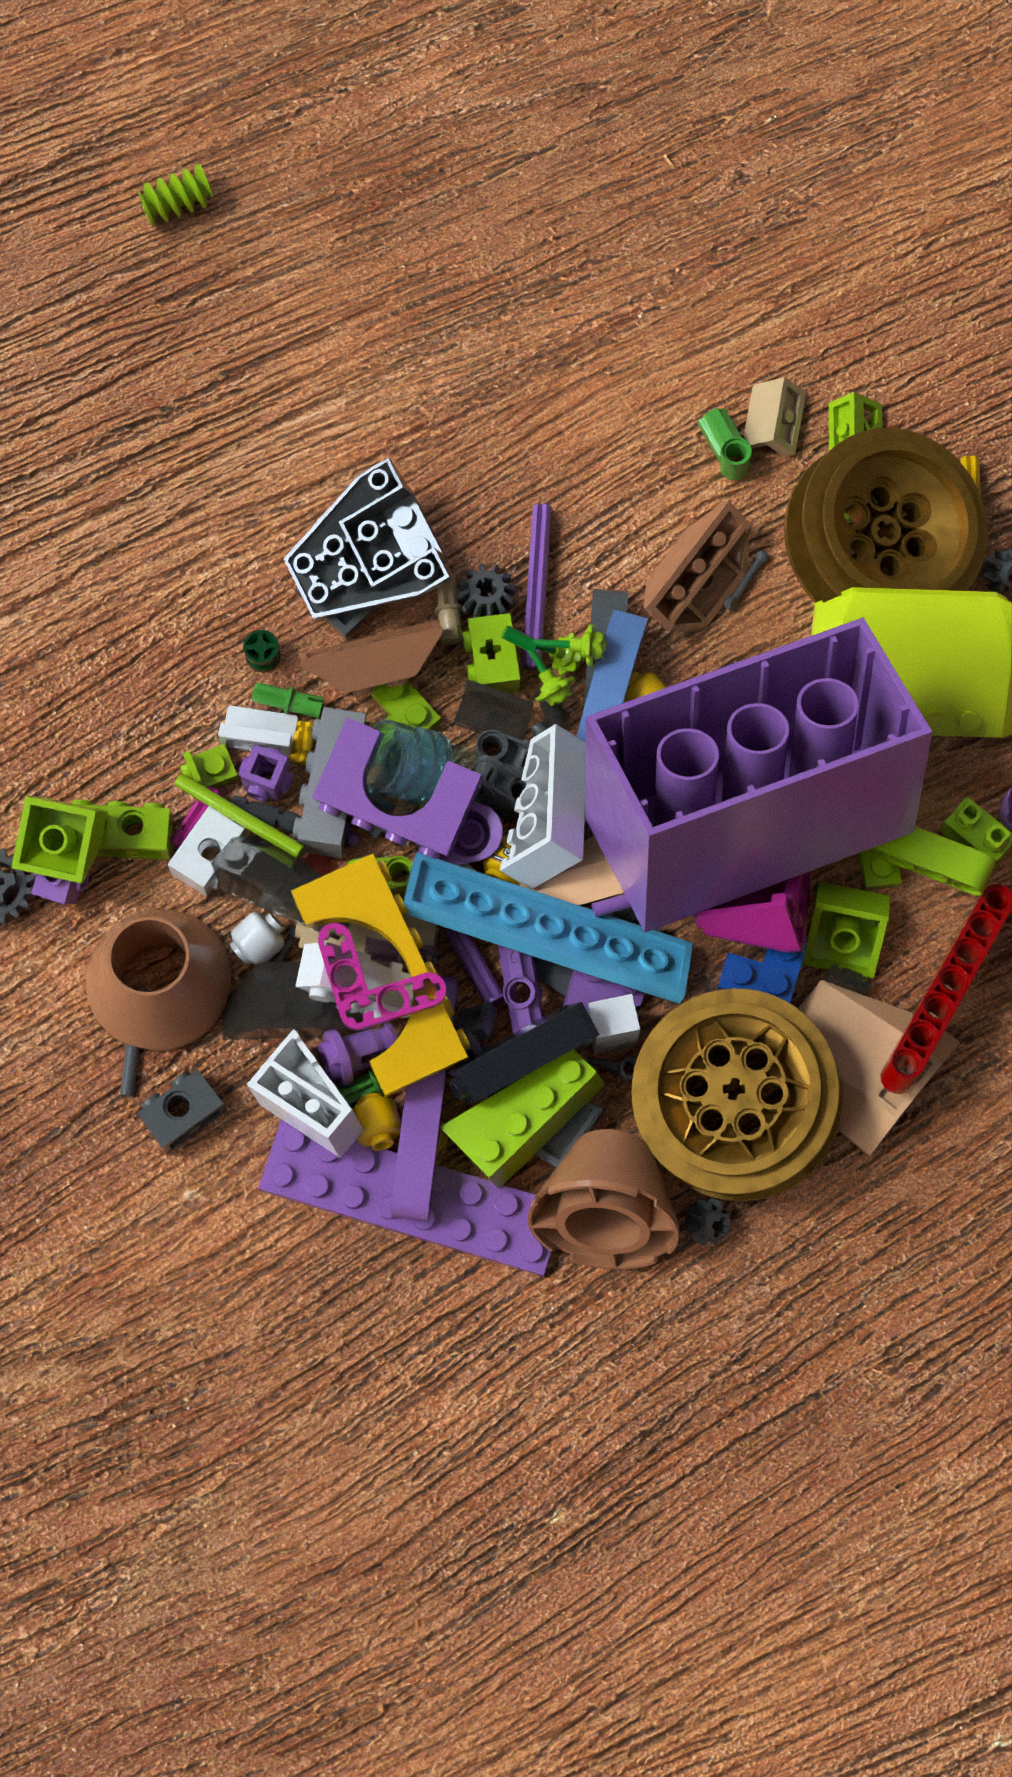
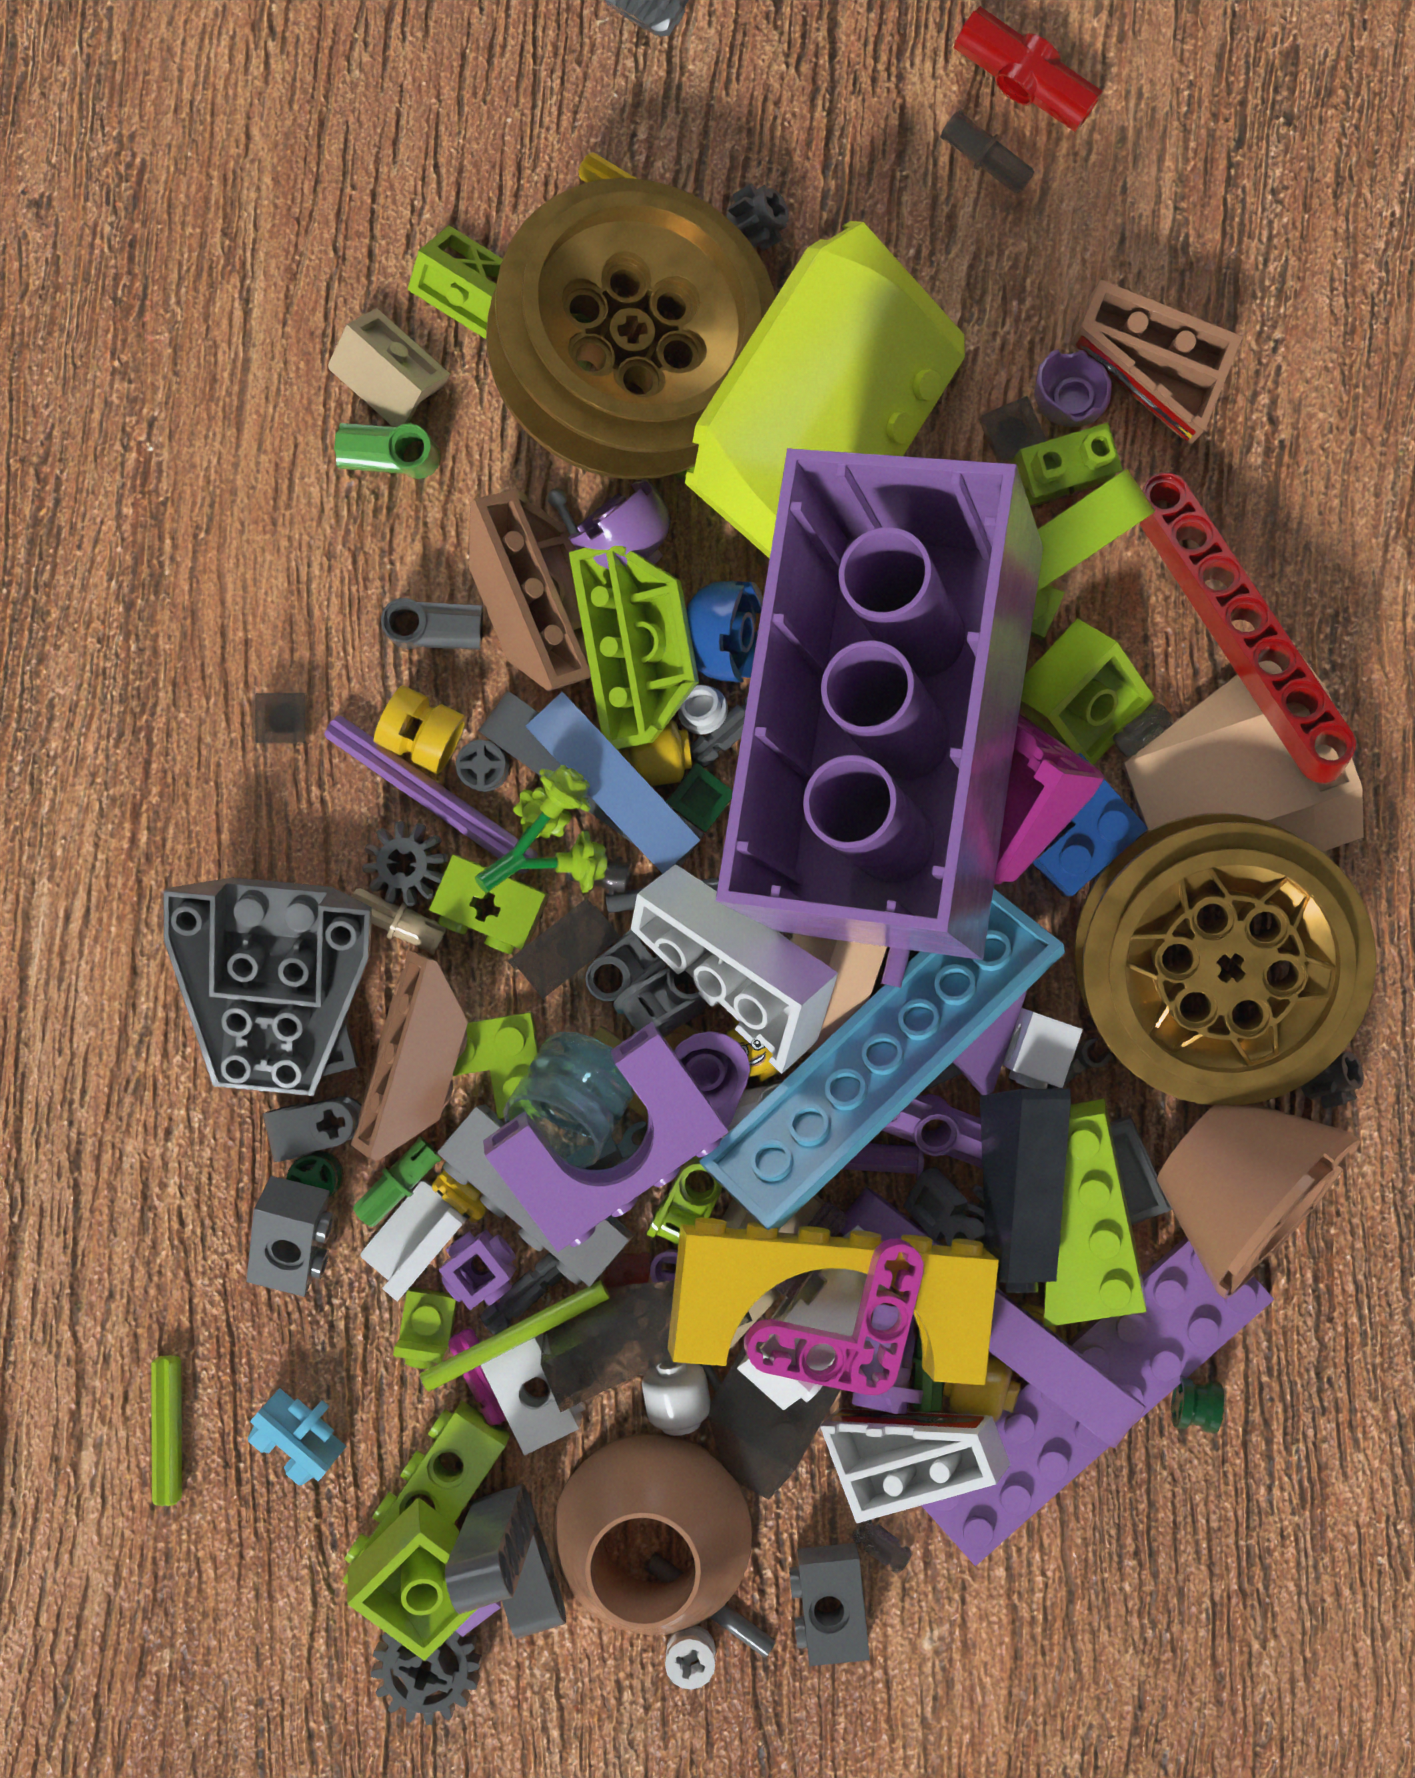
camera: 55 degrees left, 15 degrees up
(51, 654) = (166, 1430): none -> lime axle
(97, 1053) = (691, 1645): none -> white wheel
(99, 731) = (297, 1433): none -> medium azure hips
(111, 889) = (505, 1560): none -> dark grey beam
(219, 651) = (289, 1236): none -> dark grey brick
(236, 1123) = (882, 1545): none -> clear smoke piece
(291, 628) = (308, 1127): none -> dark grey piece
(446, 1265) = (1198, 1405): none -> dark green wheel
(528, 476) = (281, 718): none -> clear smoke plate
(572, 550) = (435, 737): none -> yellow wheel
(572, 596) = (473, 757): none -> dark grey wheel
(640, 530) = (439, 625): none -> dark grey piece
(705, 638) = (633, 643): none -> lime wedge
(767, 602) = (634, 523): none -> medium lavender cylinder
(979, 789) = (1012, 429): none -> clear smoke plate

